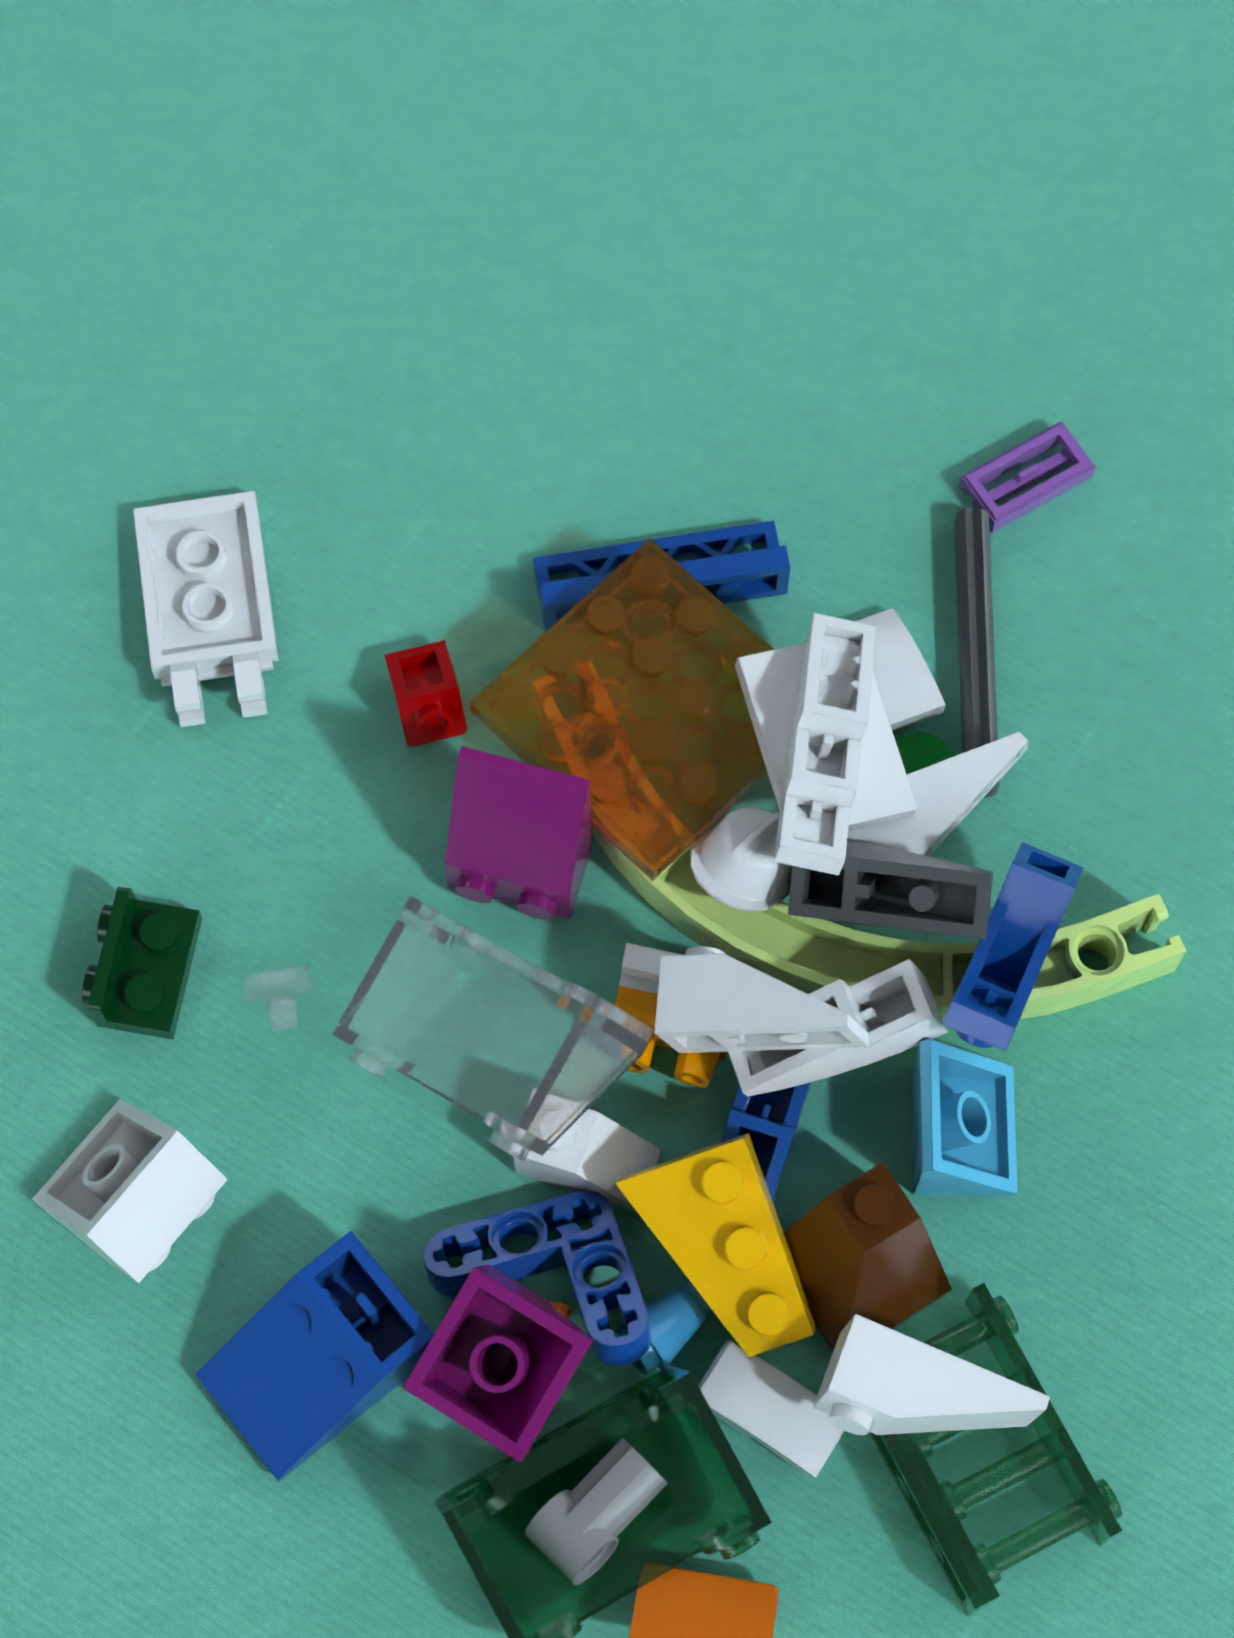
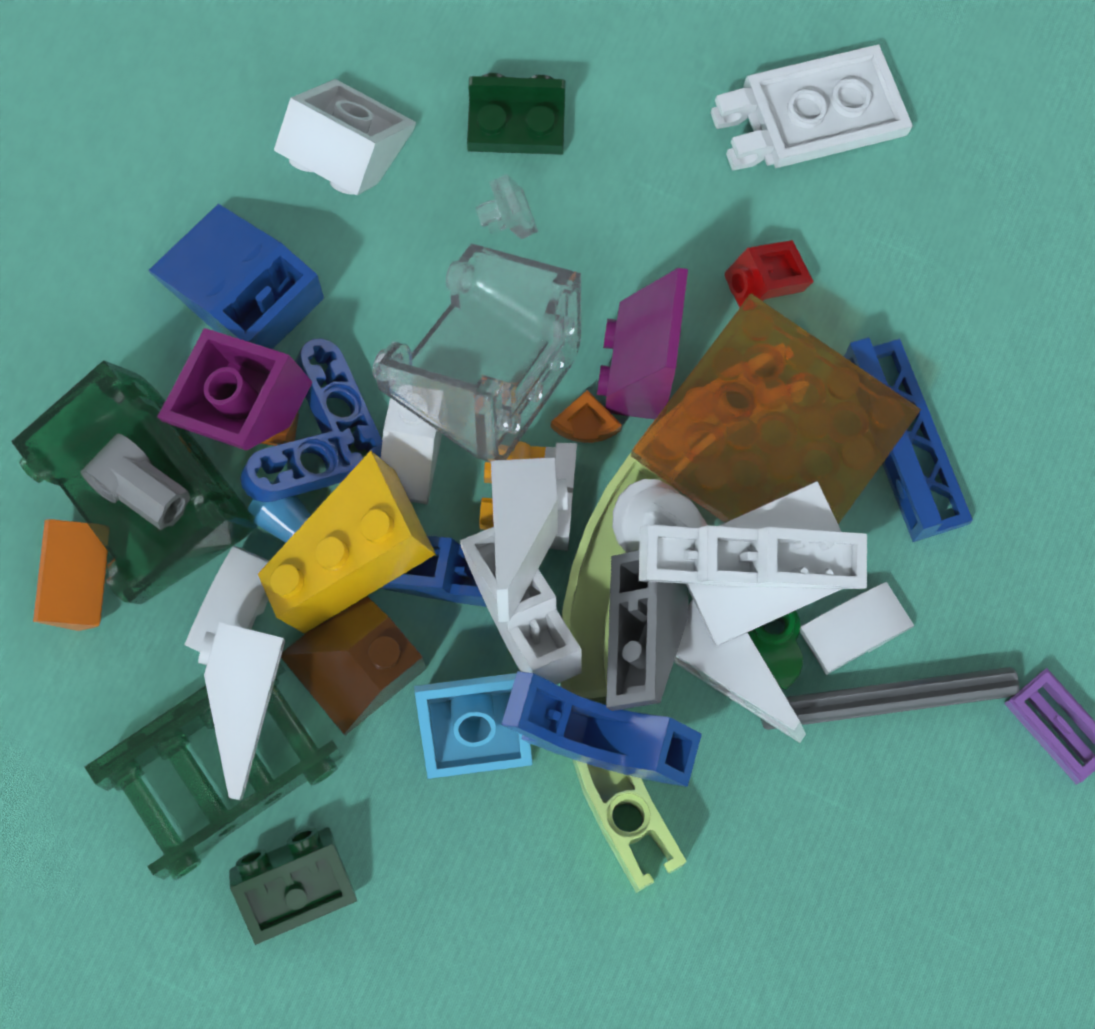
camera: 80 degrees right, 5 degrees up
(580, 939) = (586, 421): none -> orange tile
(1135, 1370) = (290, 884): none -> dark green bracket

